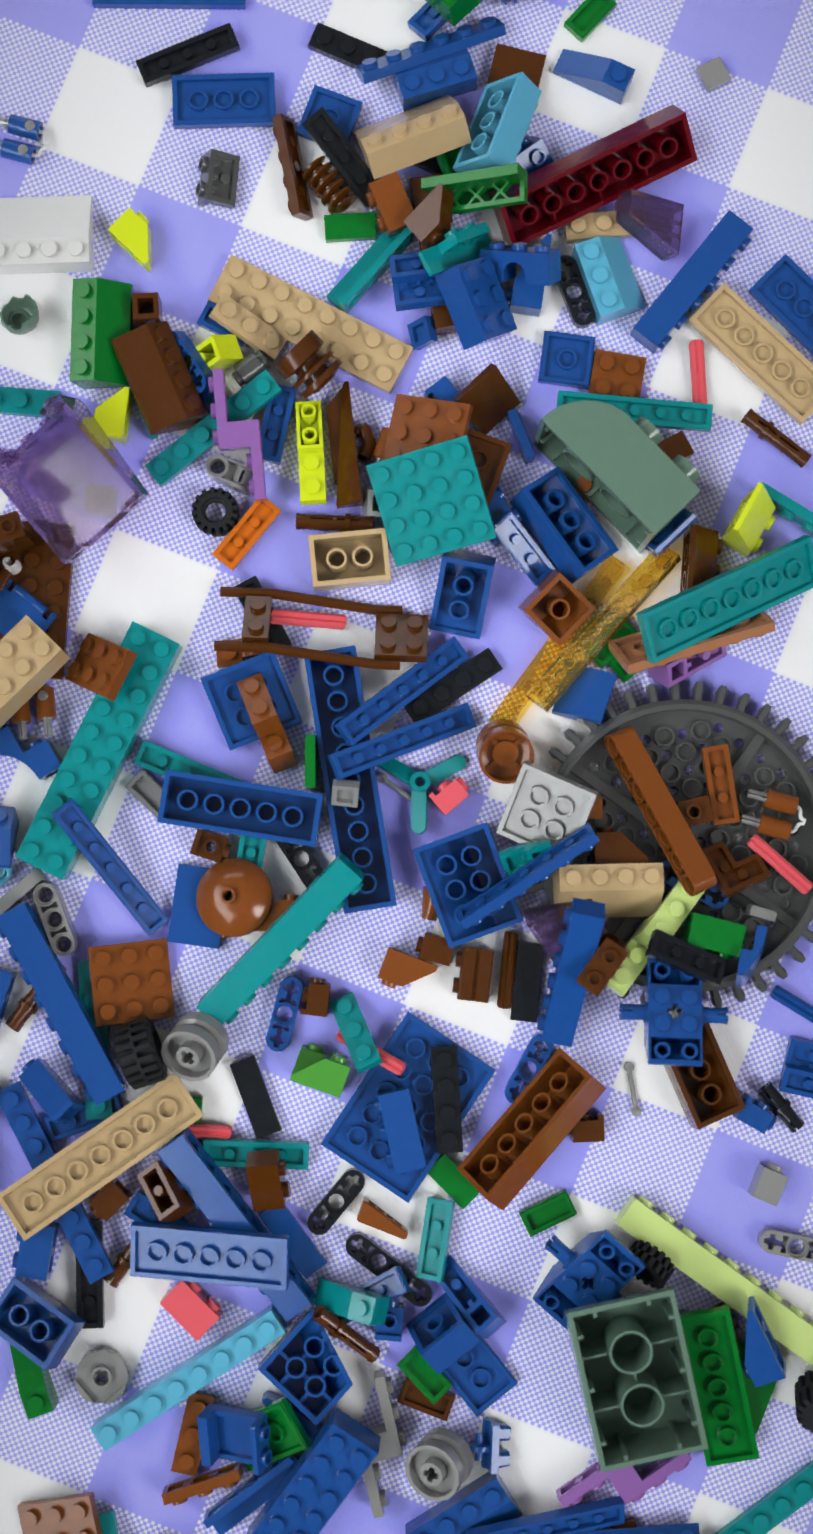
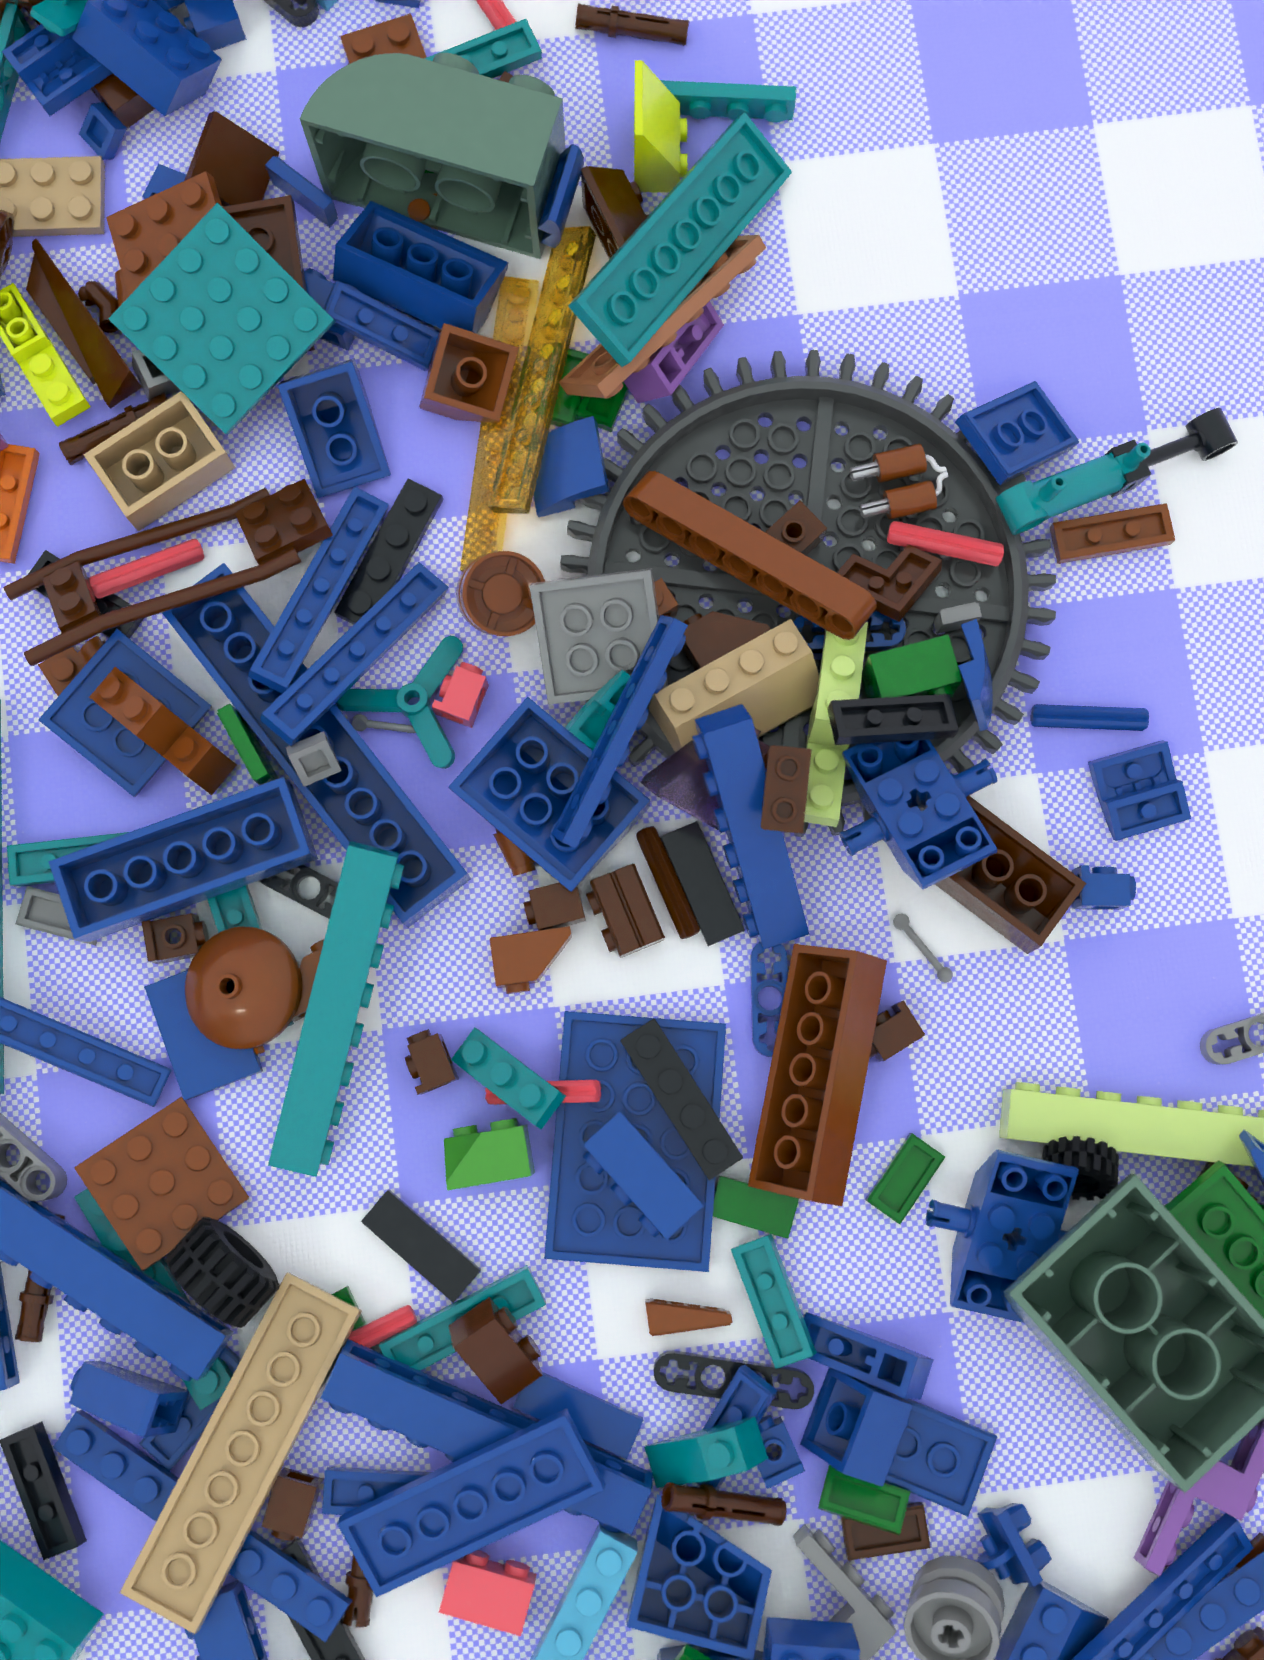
camera: 25 degrees left, 5 degrees down
(164, 1193) = (362, 1452): reddish brown brick -> none
(195, 1046) = (294, 1220): light grey wheel -> none
(273, 1030) = (396, 1141): blue beam -> none
(318, 1211) = (614, 1359): black beam -> none
(566, 360) = (303, 65): blue tile -> none
(720, 784) = (808, 482): dark orange plate -> none
(768, 1183) = (1174, 970): light grey brick -> none
(781, 1107) = (1131, 861): black pin -> none

